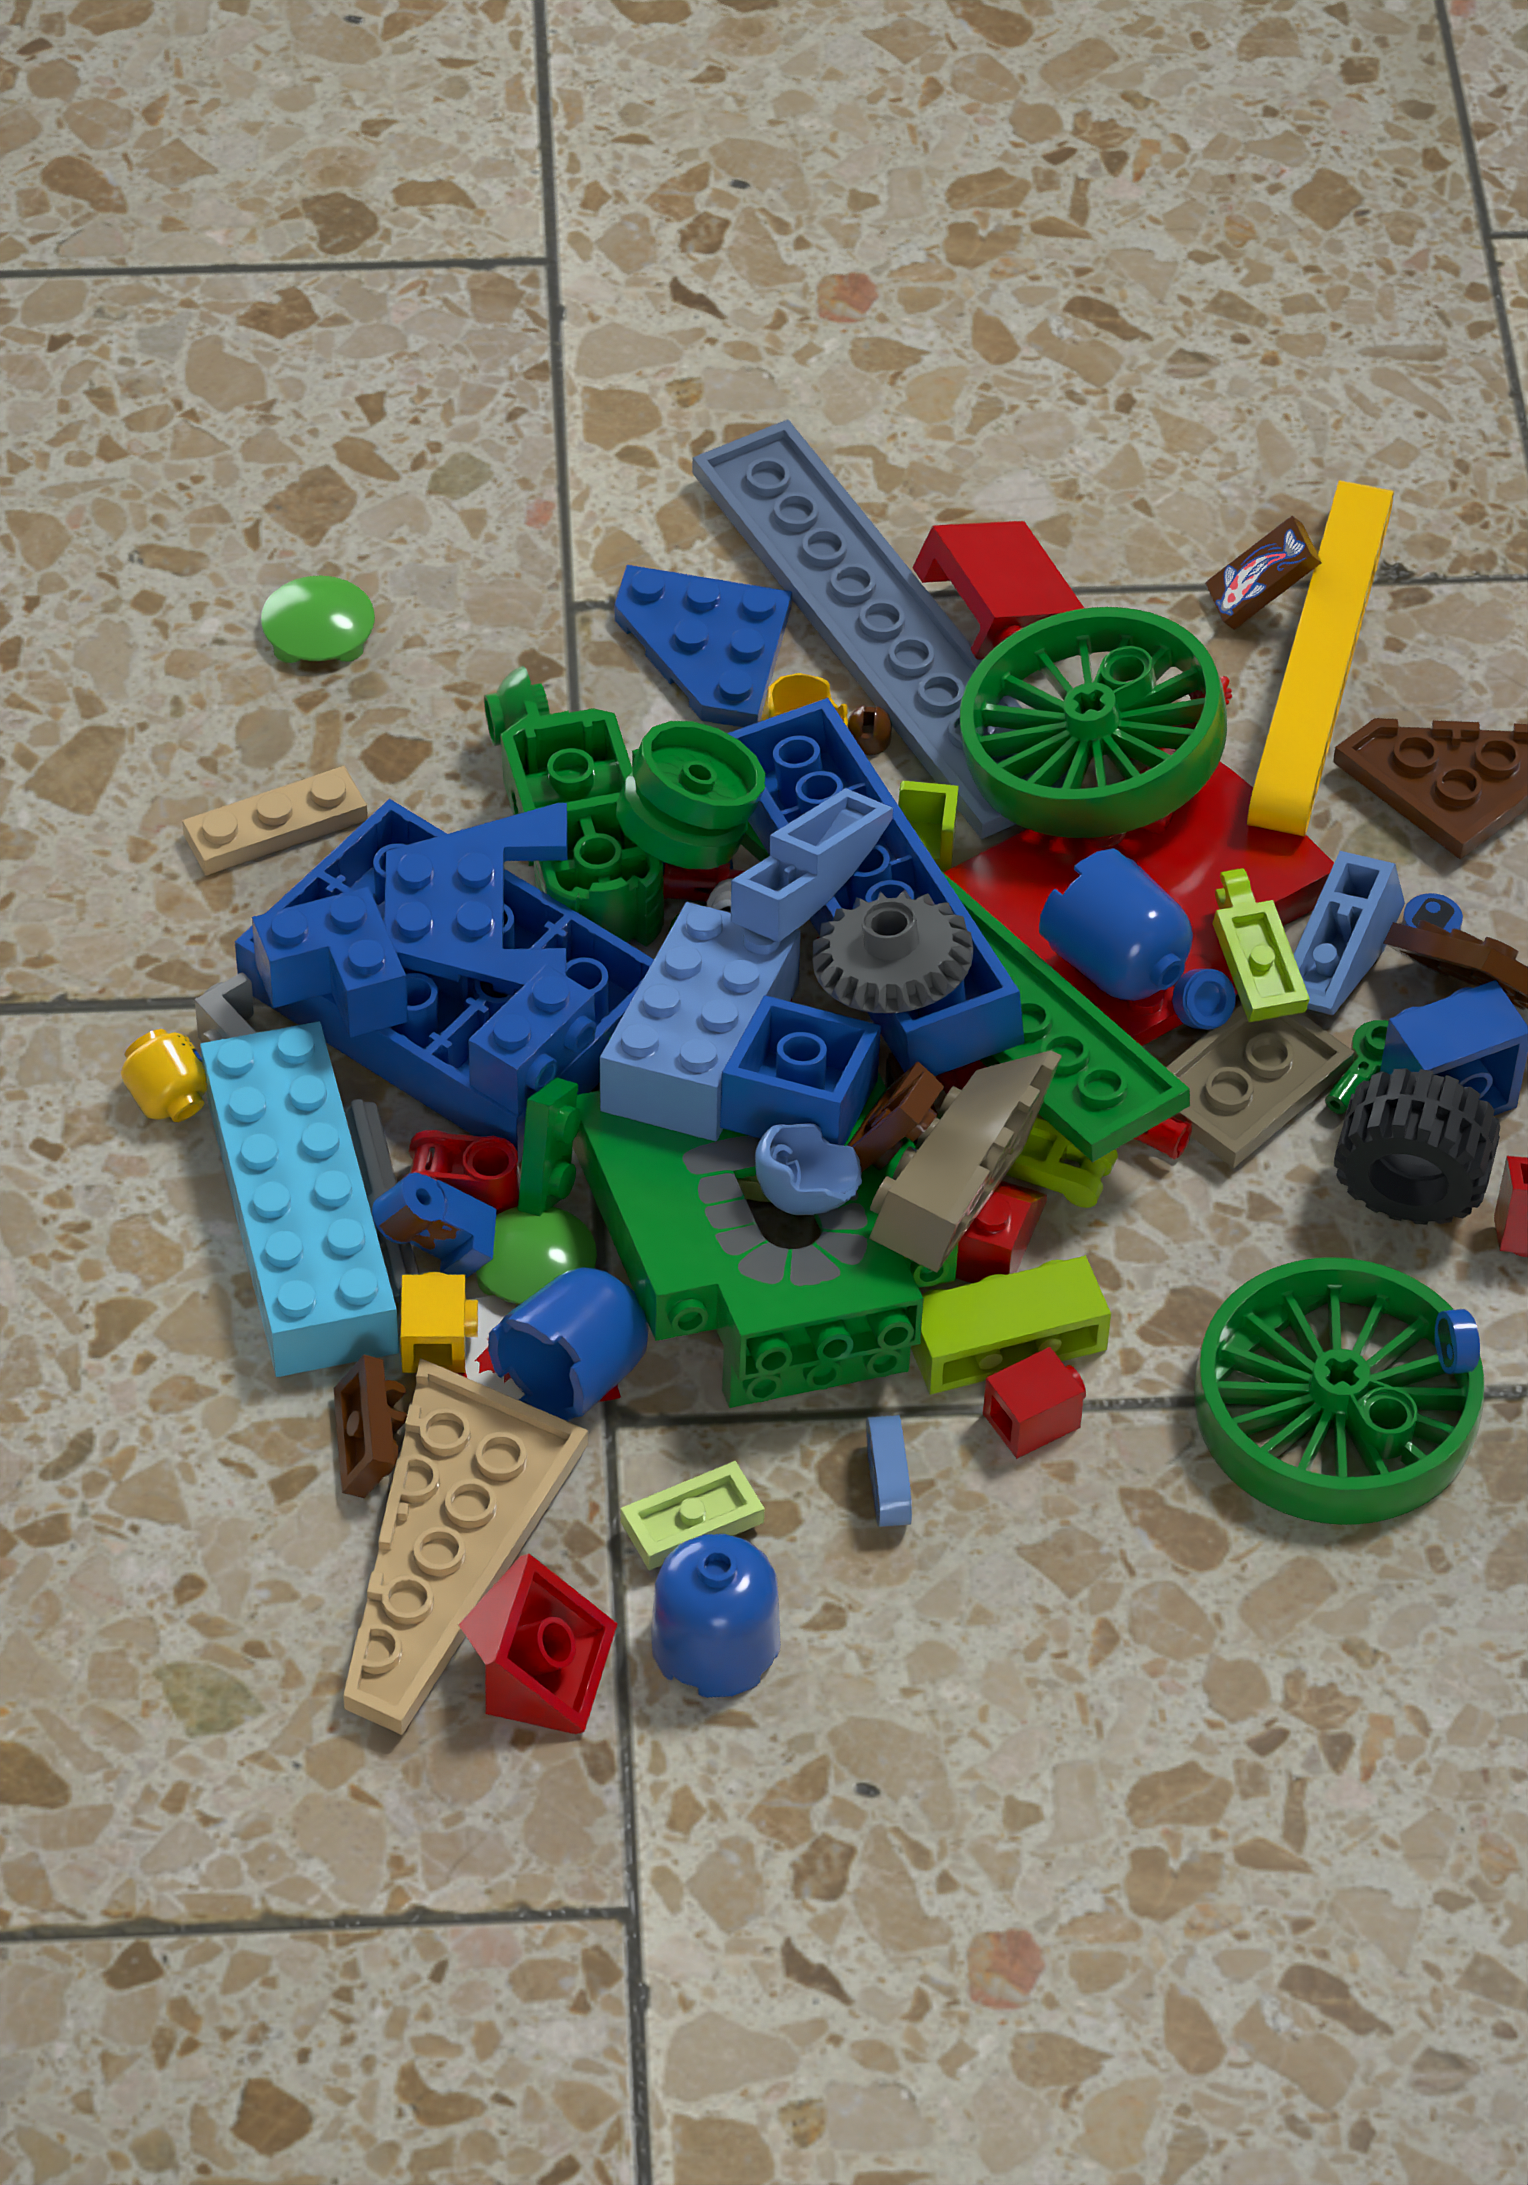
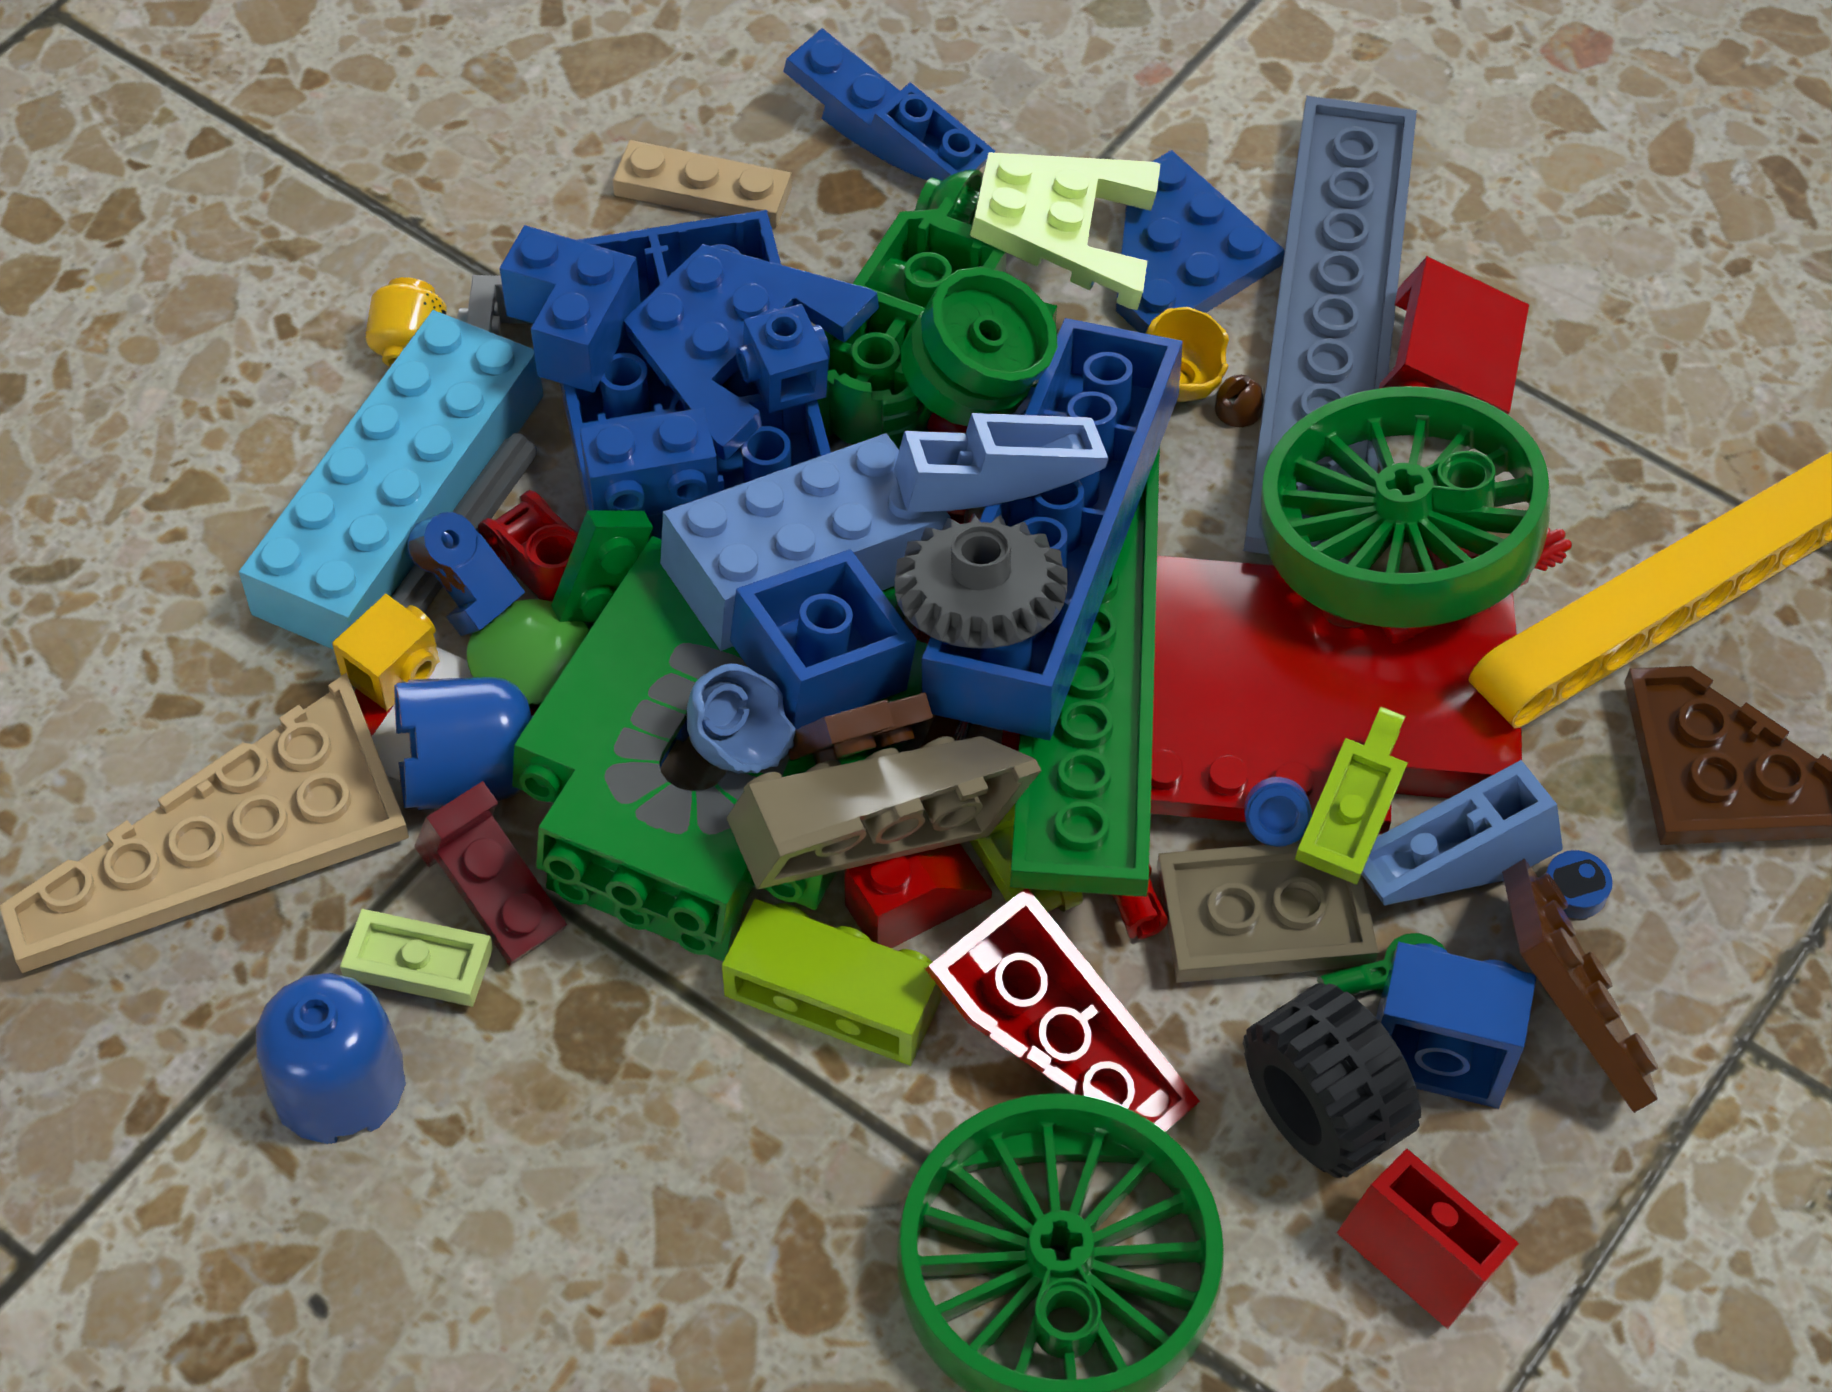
camera: 40 degrees right, 5 degrees up
(318, 620) = (898, 46): bright green dish -> none
(367, 1425) = (236, 719): reddish brown plate -> none
(393, 678) = (888, 122): none -> blue slope
(539, 1648) = (177, 980): red slope -> none
(549, 894) = (784, 357): none -> blue brick
(606, 669) = (1045, 211): none -> yellowish green wing
(684, 1417) = (489, 873): none -> dark red bracket
(888, 1471) = (606, 1037): medium blue beam -> none
(933, 815) = (1200, 512): lime panel -> none
(1034, 1402) = (786, 1067): red brick -> none
(1118, 928) = (1238, 694): blue cylinder -> none
(1177, 1230) = (1048, 1006): none -> red wedge
(1263, 572) = (1707, 475): reddish brown tile -> none
(1457, 1341) = (1179, 1292): blue tile -> none

